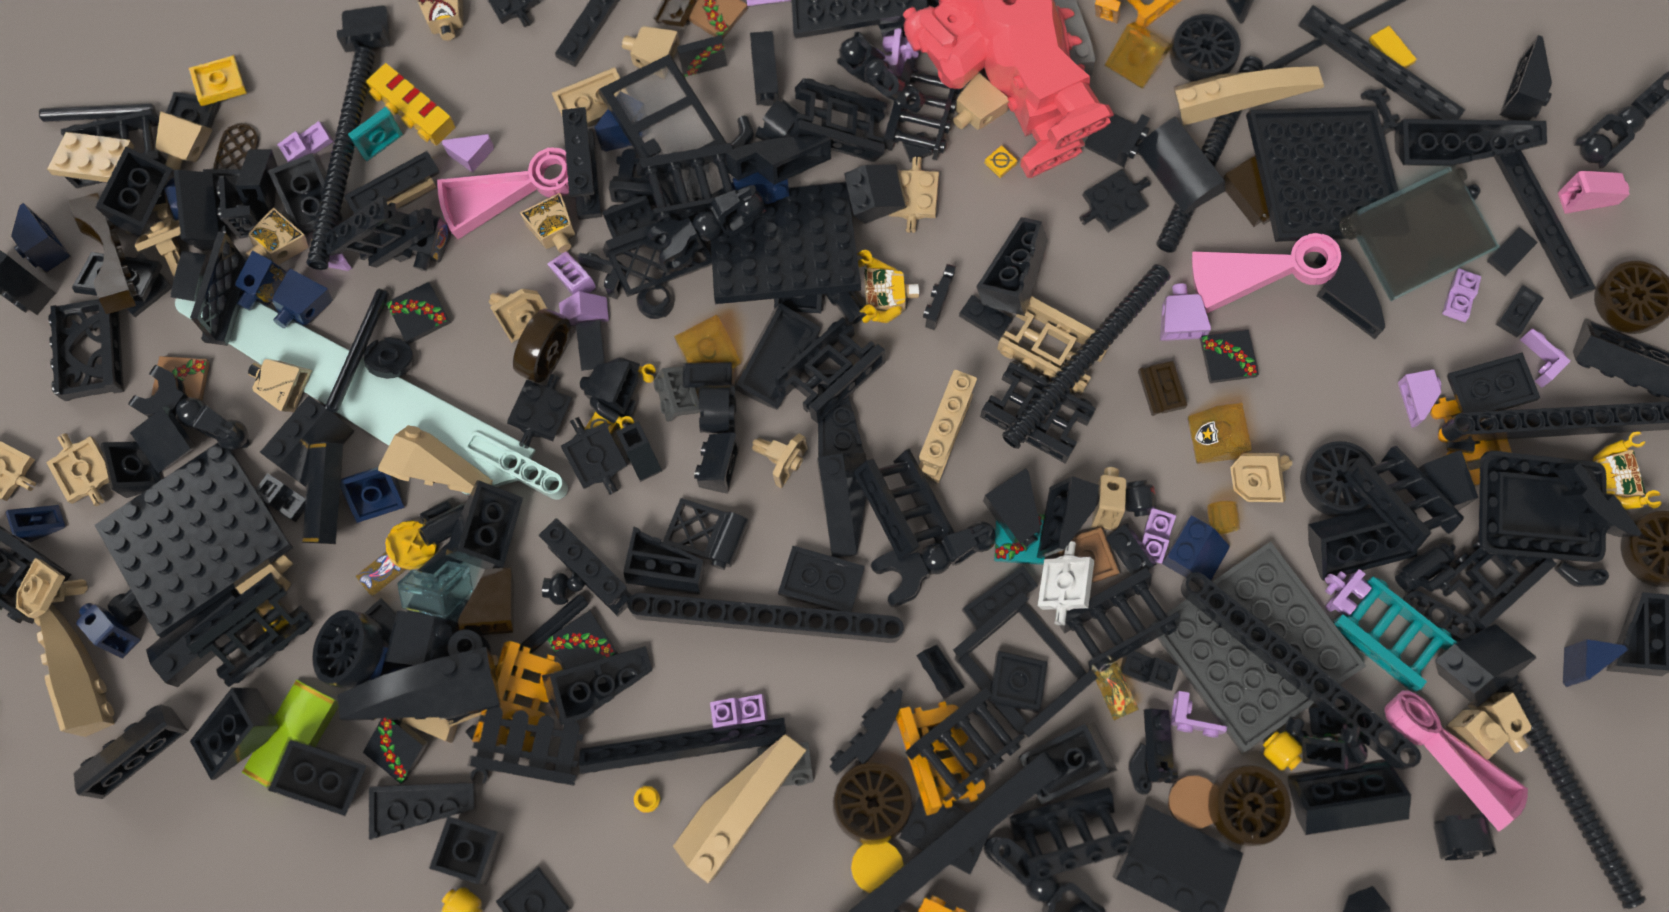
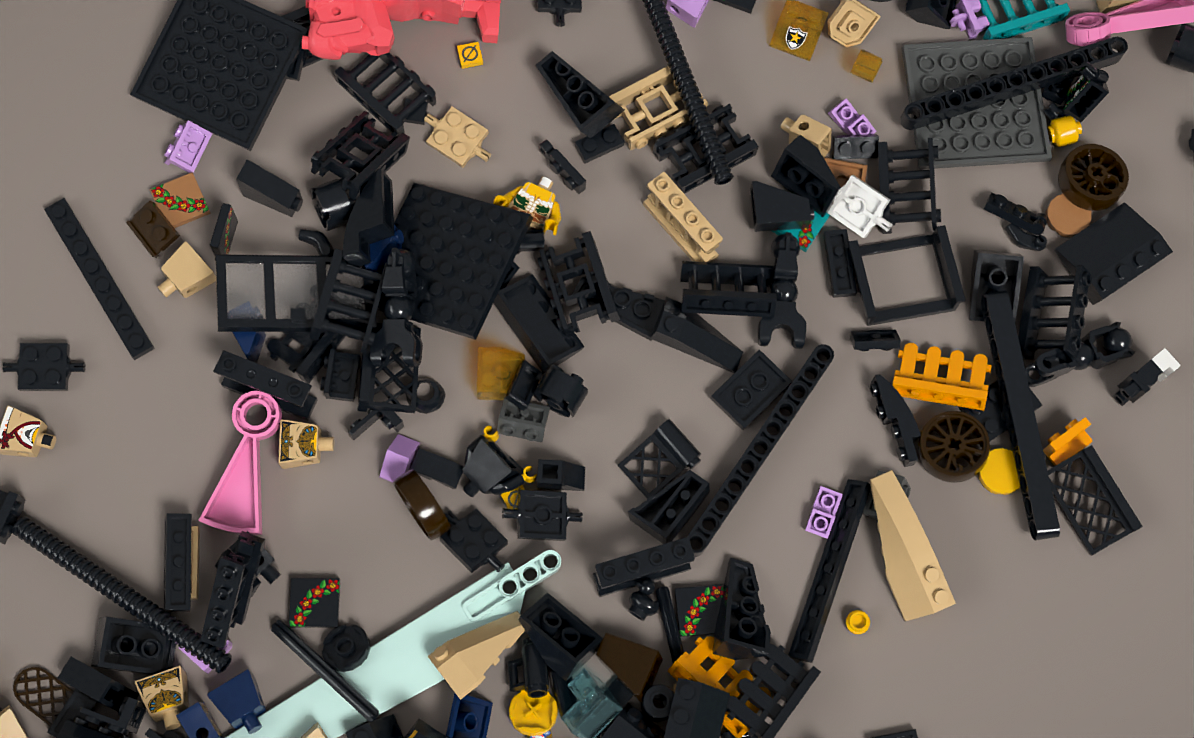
camera: 70 degrees left, 0 degrees up
(308, 142) = (77, 625): lavender slope -> none
(375, 134) = (118, 552): teal tile -> none
(410, 104) = (102, 509): yellow brick -> none
(469, 150) = (183, 481): lavender slope -> none
(516, 310) = (371, 513): tan piece -> none
(583, 283) = (378, 456): lavender slope -> none
(586, 95) = (199, 350): tan plate -> none
(718, 462) = (607, 416): black slope -> none
(784, 456) = (636, 359): tan piece -> none
(875, 191) = (440, 163): black slope -> none
(877, 71) = (333, 100): black piece -> none
(900, 51) = (310, 74): lavender hips -> none
(943, 735) = (930, 362): black fence -> none
(979, 104) = (411, 41): tan torso -> none
(1018, 681) = (913, 287): black tile -> none
(1116, 692) = (961, 221): clear yellow tile -> none
(1140, 498) = (819, 111): black head -> none
(1149, 670) = (954, 188): black slope -> none
(1162, 388) = (737, 48): dark brown plate -> none
(1181, 708) = (997, 184): lavender bracket -> none
(1196, 550) = (879, 101): dark blue slope -> none
(1349, 798) = (1121, 113): black slope -> none

